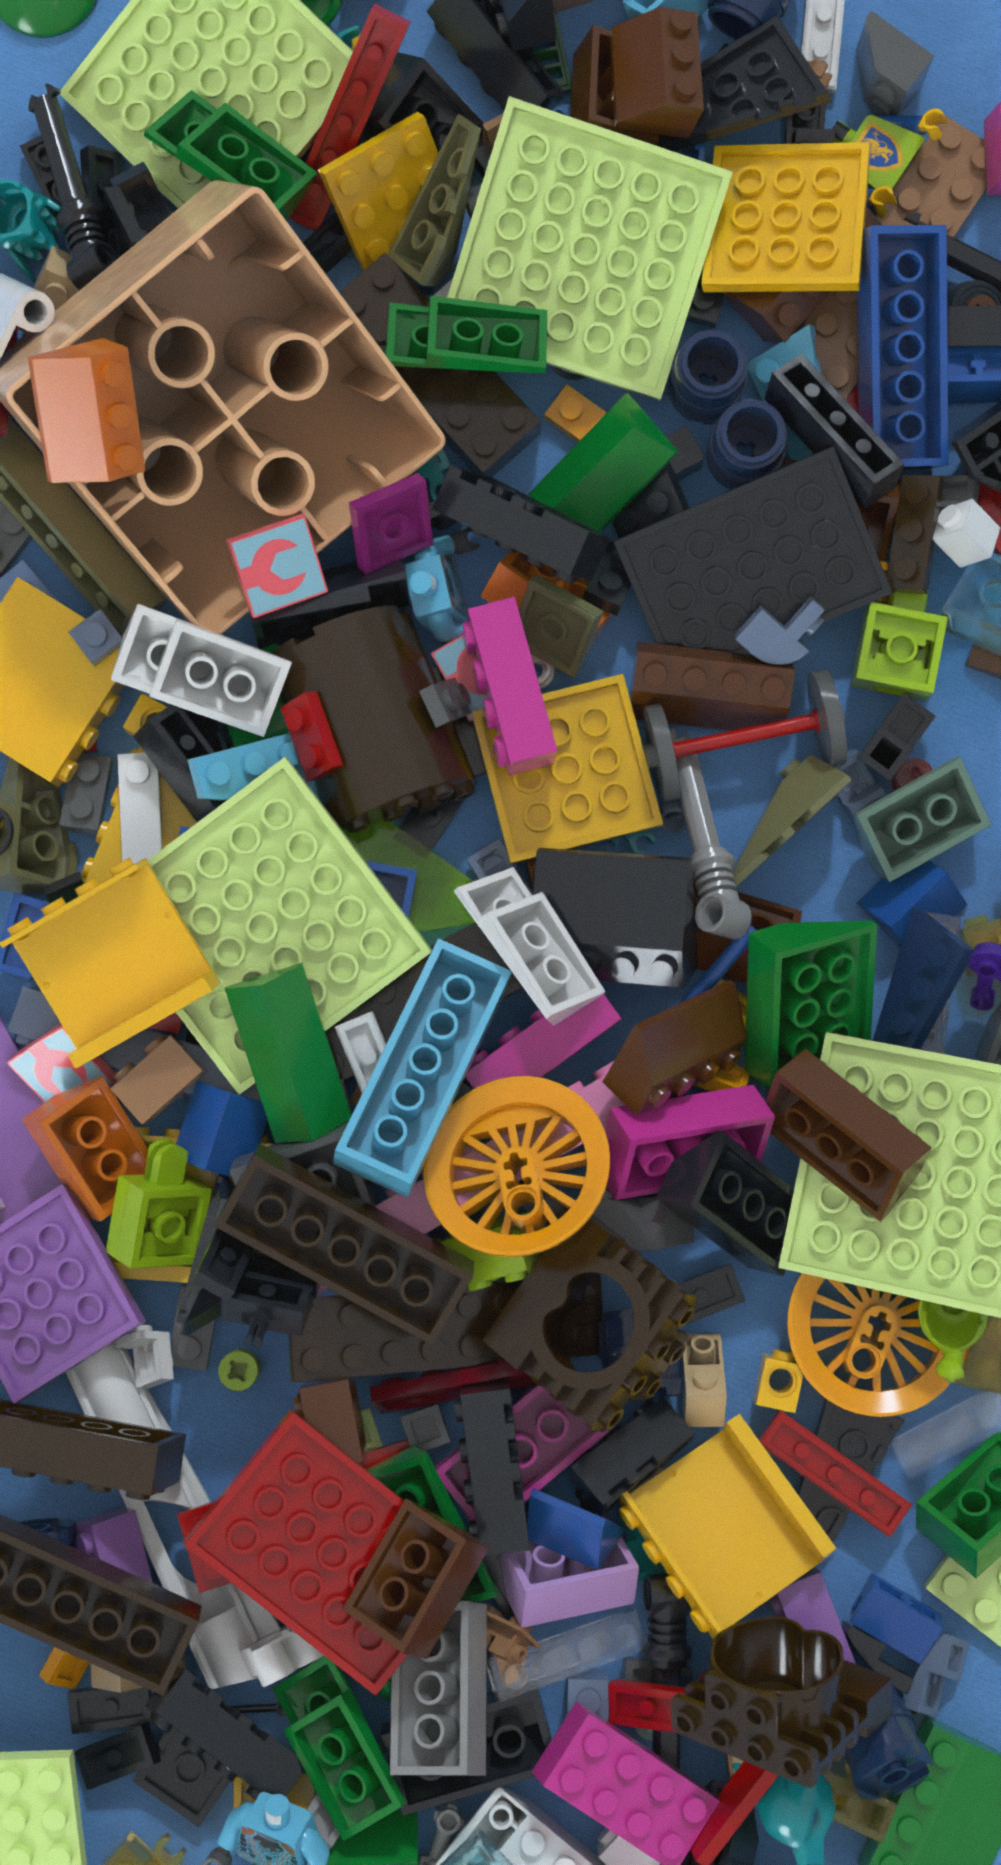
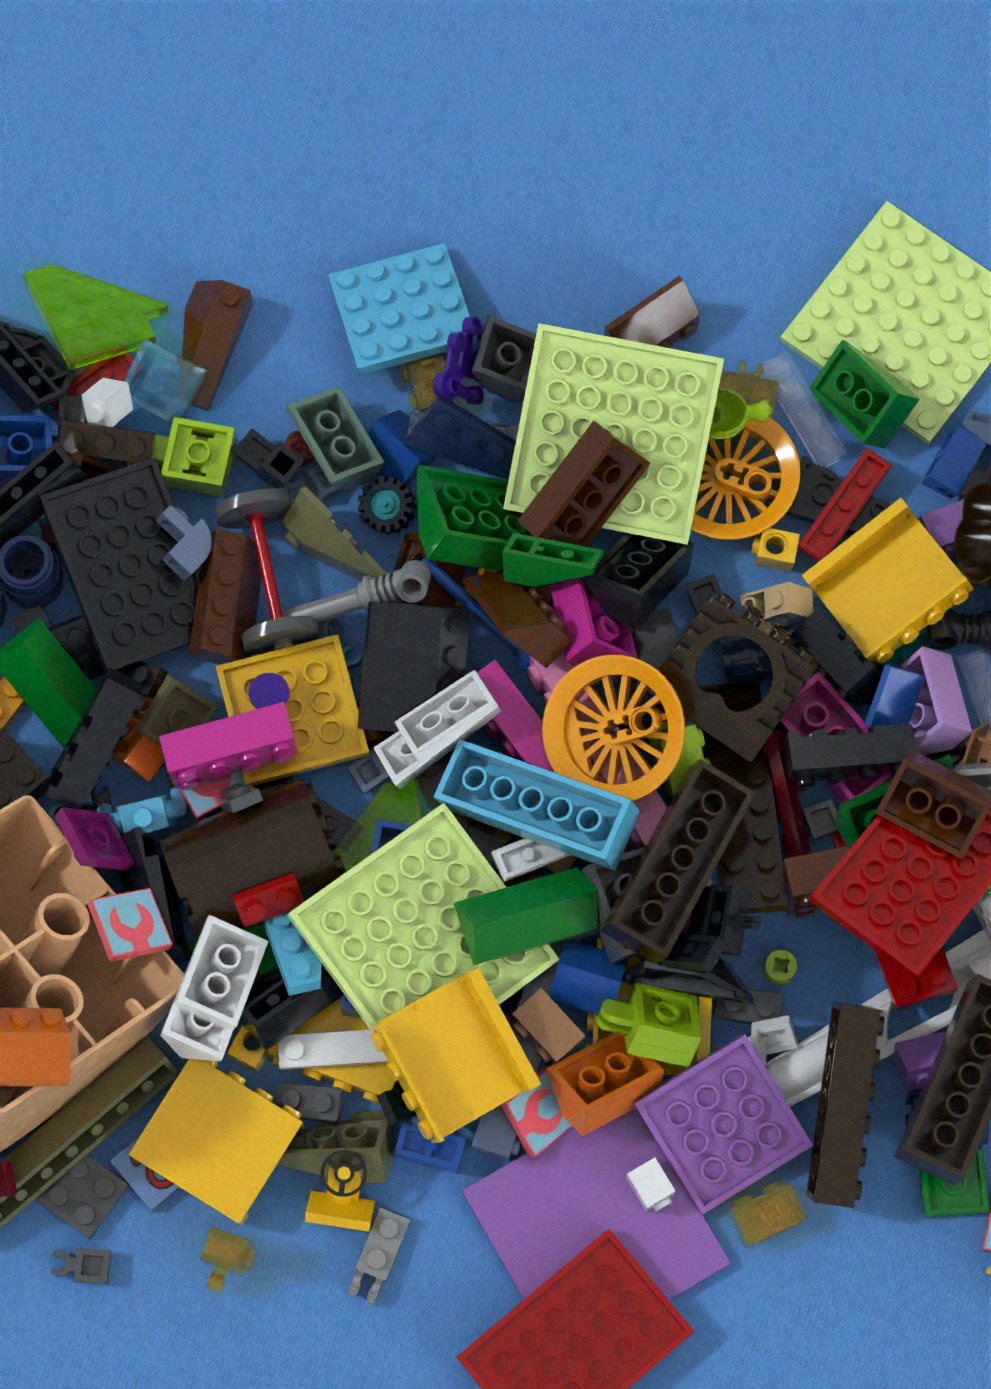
camera: 90 degrees left, 10 degrees down
(96, 637) = (182, 1083): sand blue plate -> none
(580, 736) = (268, 690): none -> dark purple piece
(745, 1085) = (544, 561): none -> green slope
(836, 886) = (387, 505): none -> black wheel

